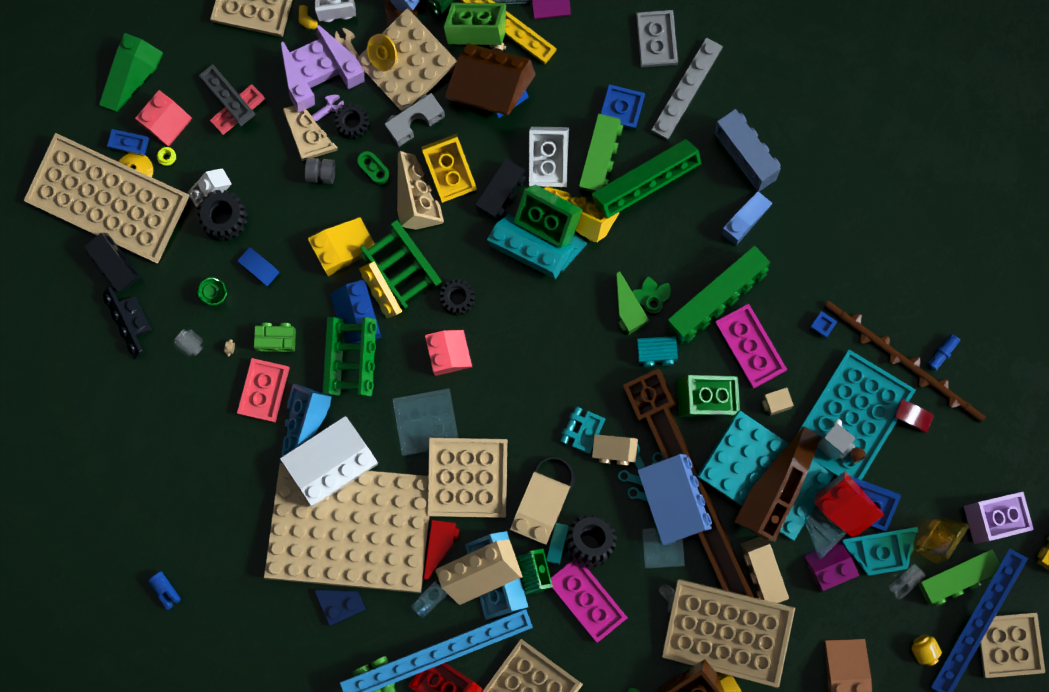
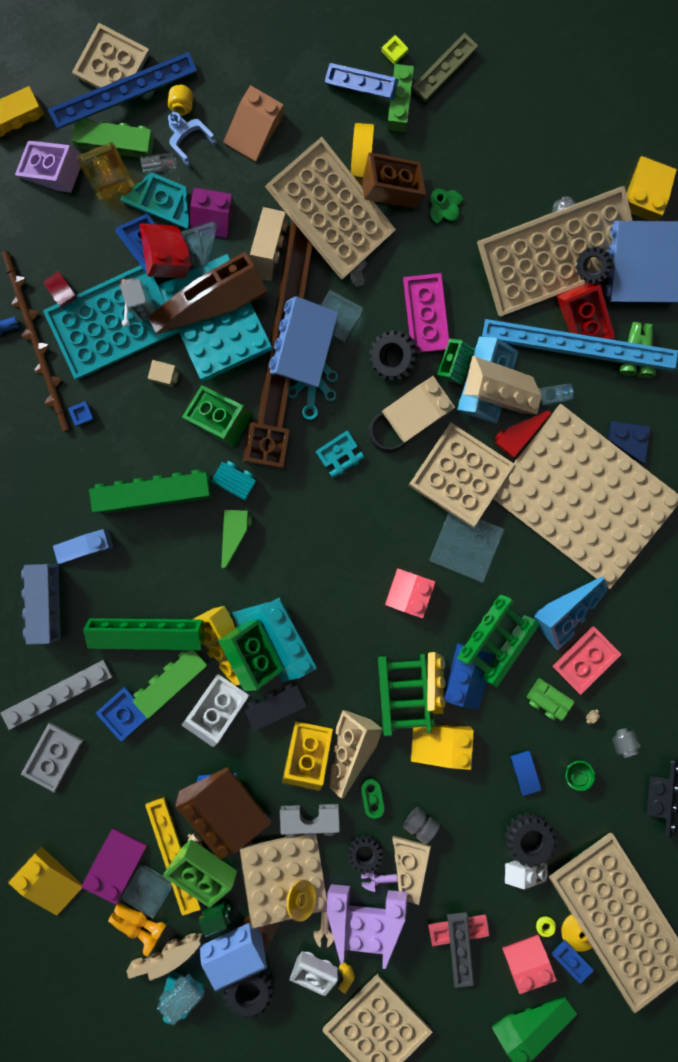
camera: 155 degrees left, 10 degrees up
(112, 262) = (651, 858): black brick -> none
(329, 461) = (571, 560): white slope -> none
(453, 286) = (384, 636): black tyre -> none
(557, 543) = (422, 371): teal slope -> none
(614, 448) = (324, 419): tan brick -> none
(652, 293) = (205, 534): green plate -> none
(751, 346) = (153, 434): dark pink plate -> none
(907, 624) = (182, 129): none -> light blue piece

